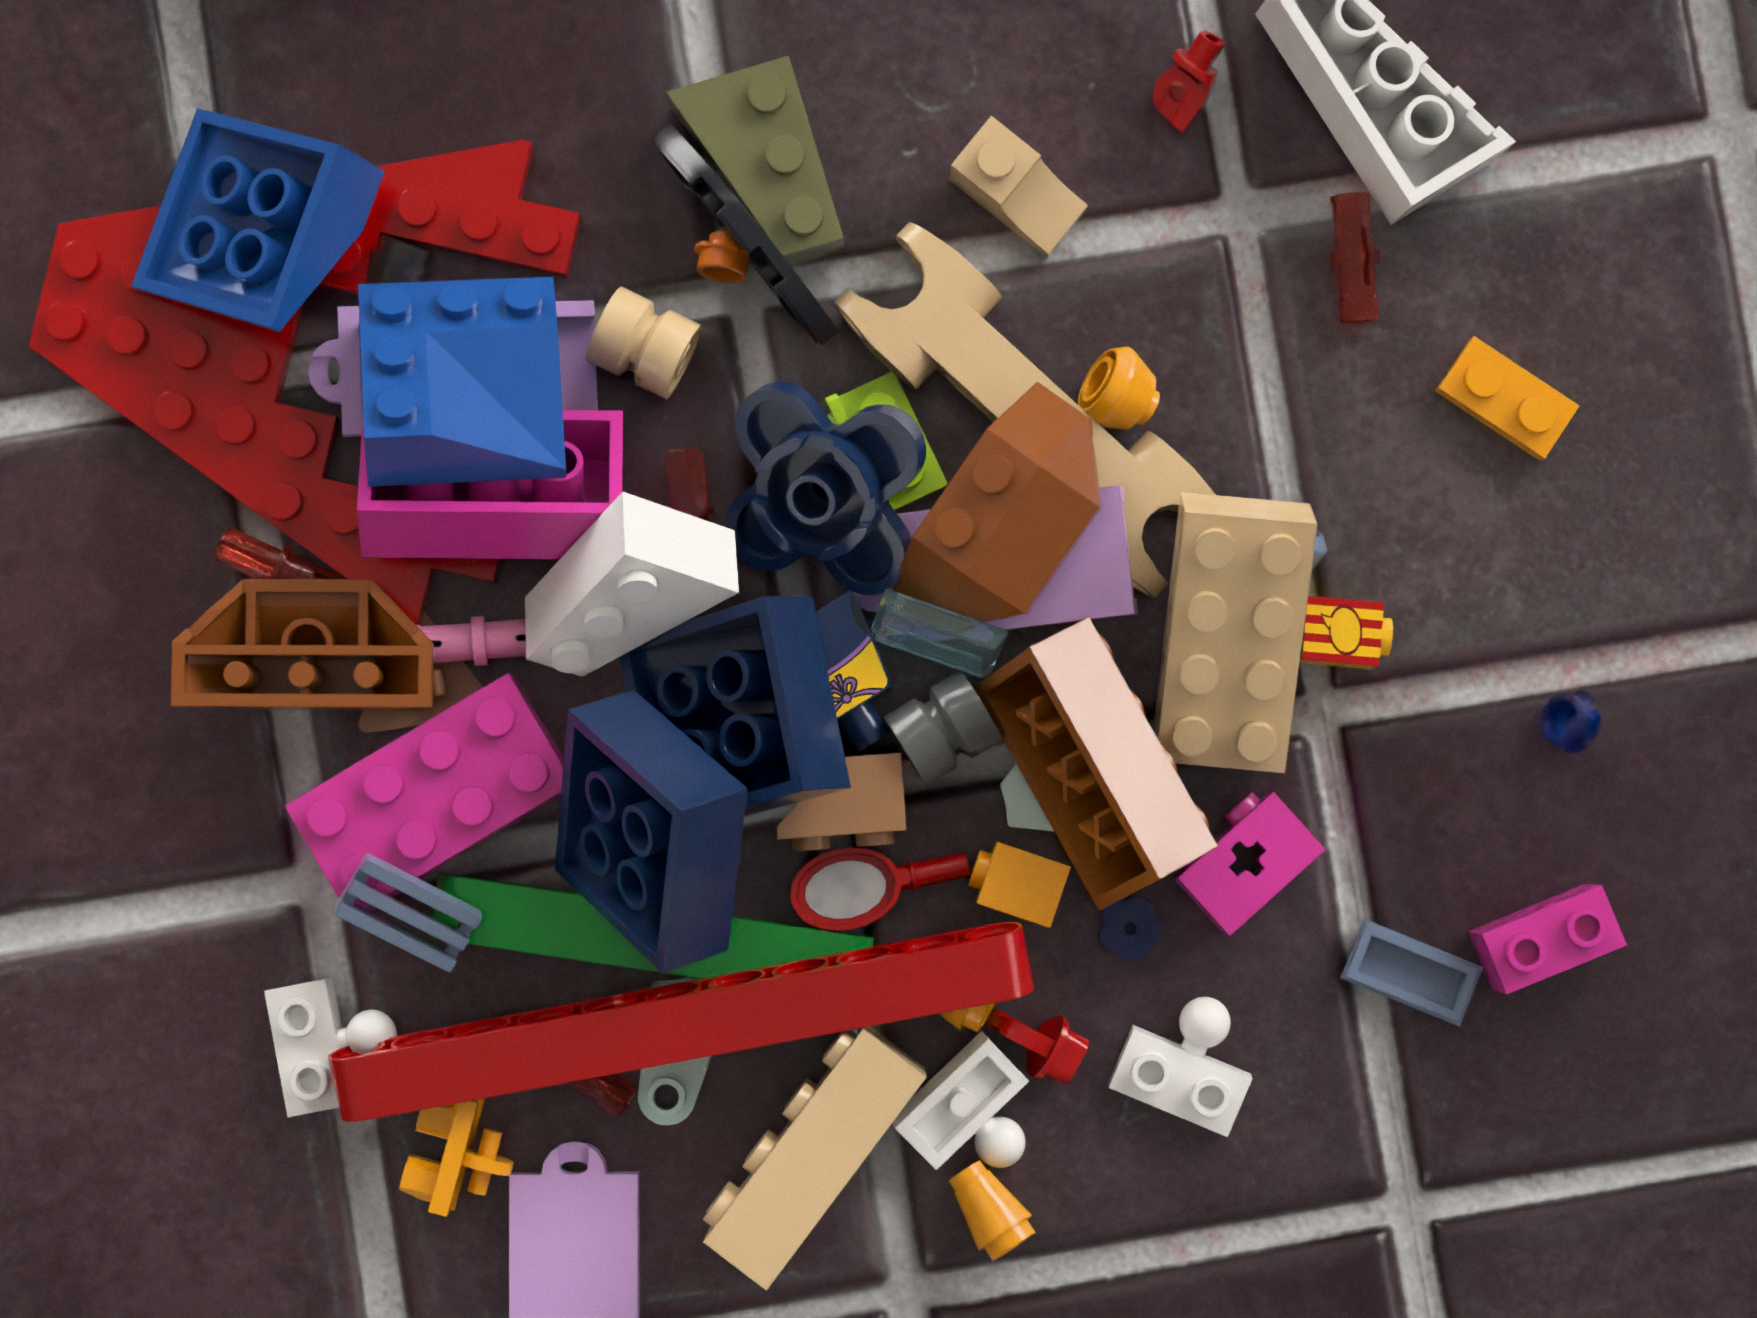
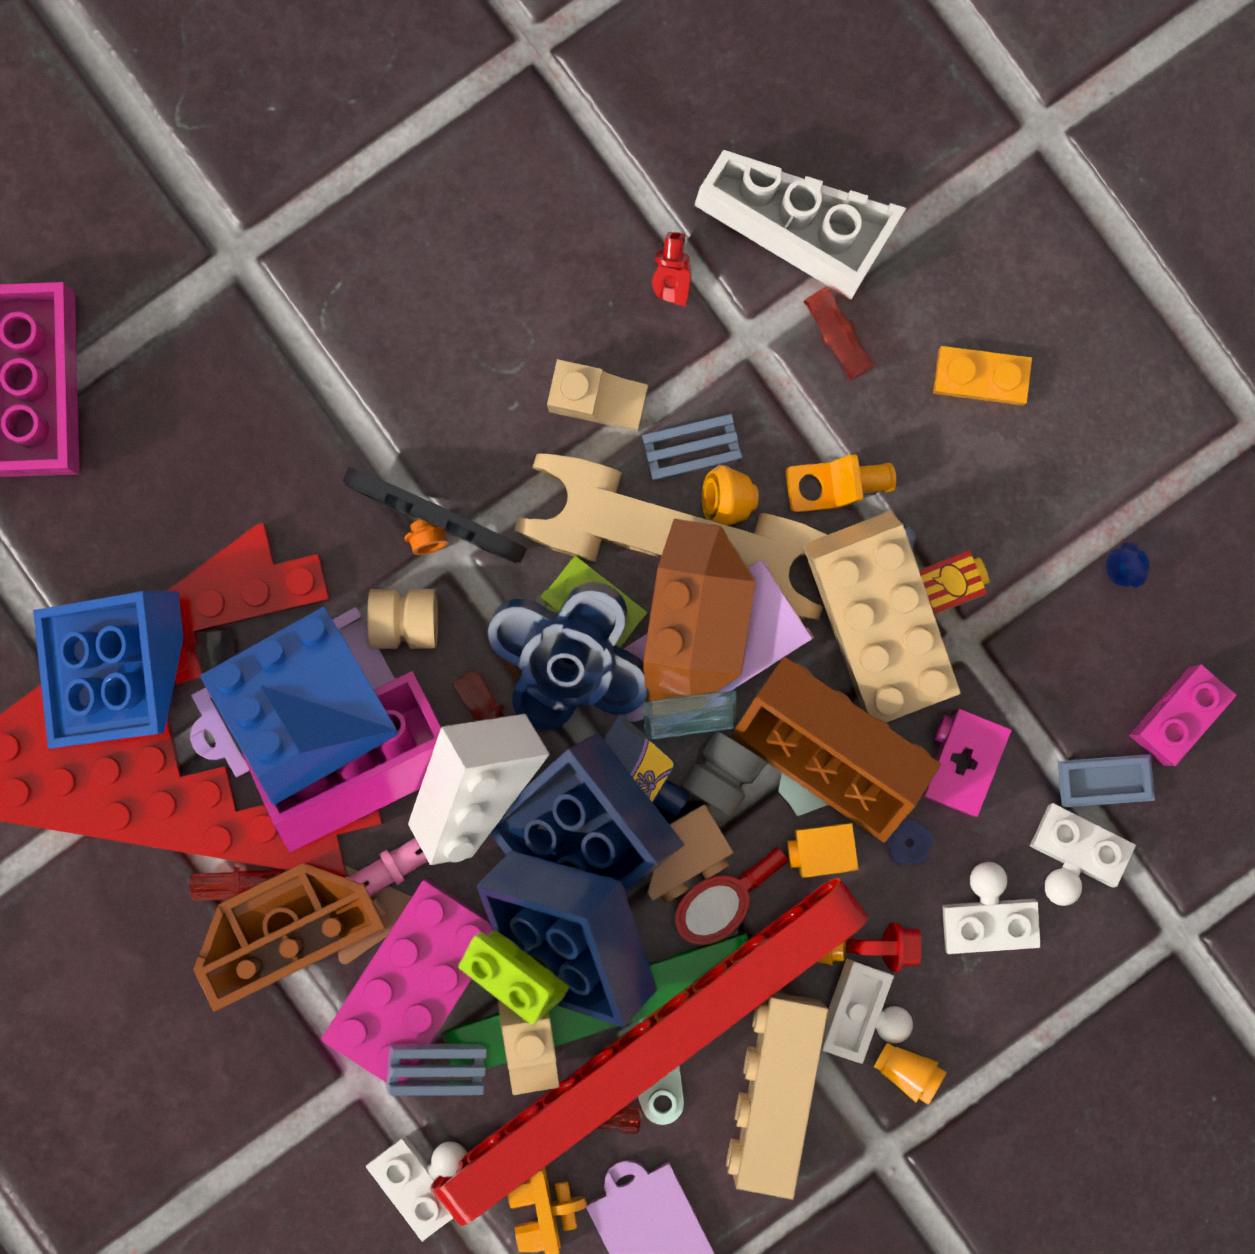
camera: 25 degrees left, 0 degrees up
(536, 939) = (528, 1052): none -> tan arch
(557, 842) = (512, 976): none -> lime bracket
(765, 153) = (422, 456): olive wedge -> none
(1106, 285) = (690, 429): none -> sand blue tile
(1266, 442) = (841, 483): none -> light orange bracket
(1338, 1040) = (1082, 849): none -> white plate

